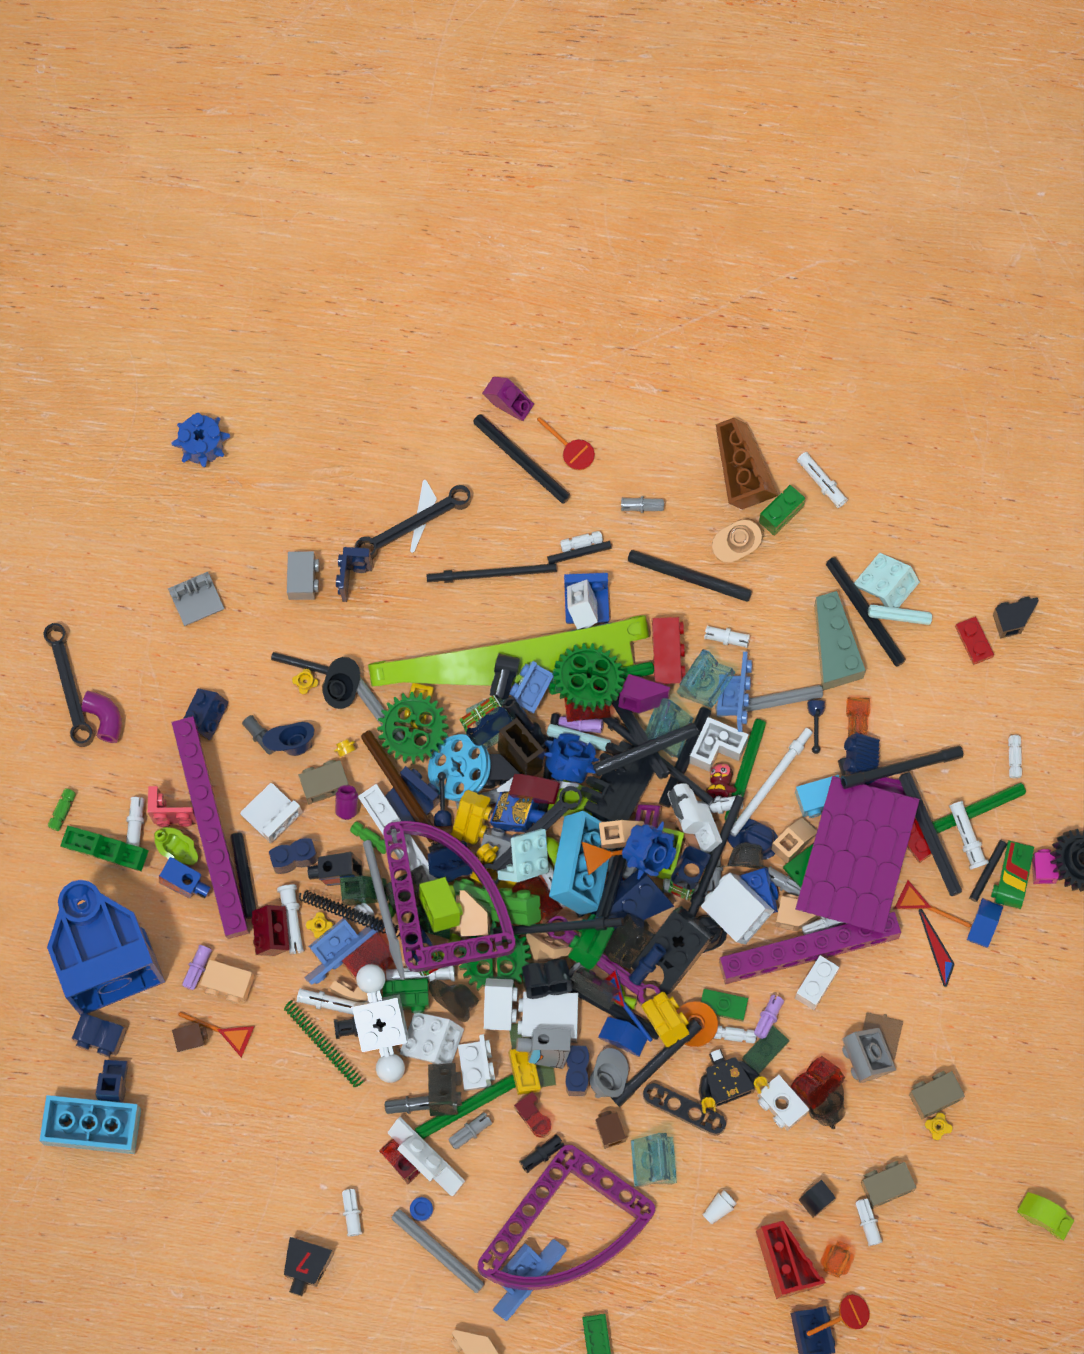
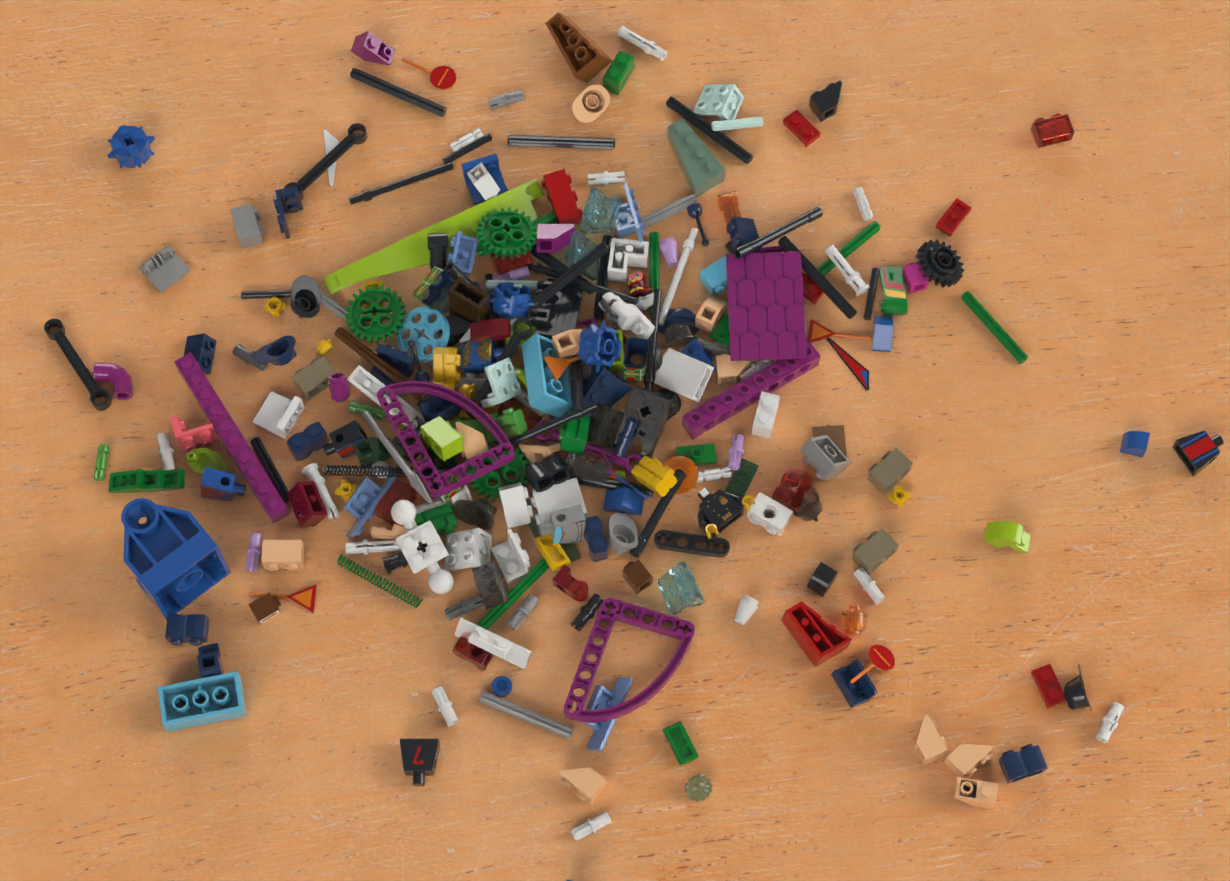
camera: 20 degrees left, 5 degrees down
(771, 749) = (669, 251): none -> lavender cone

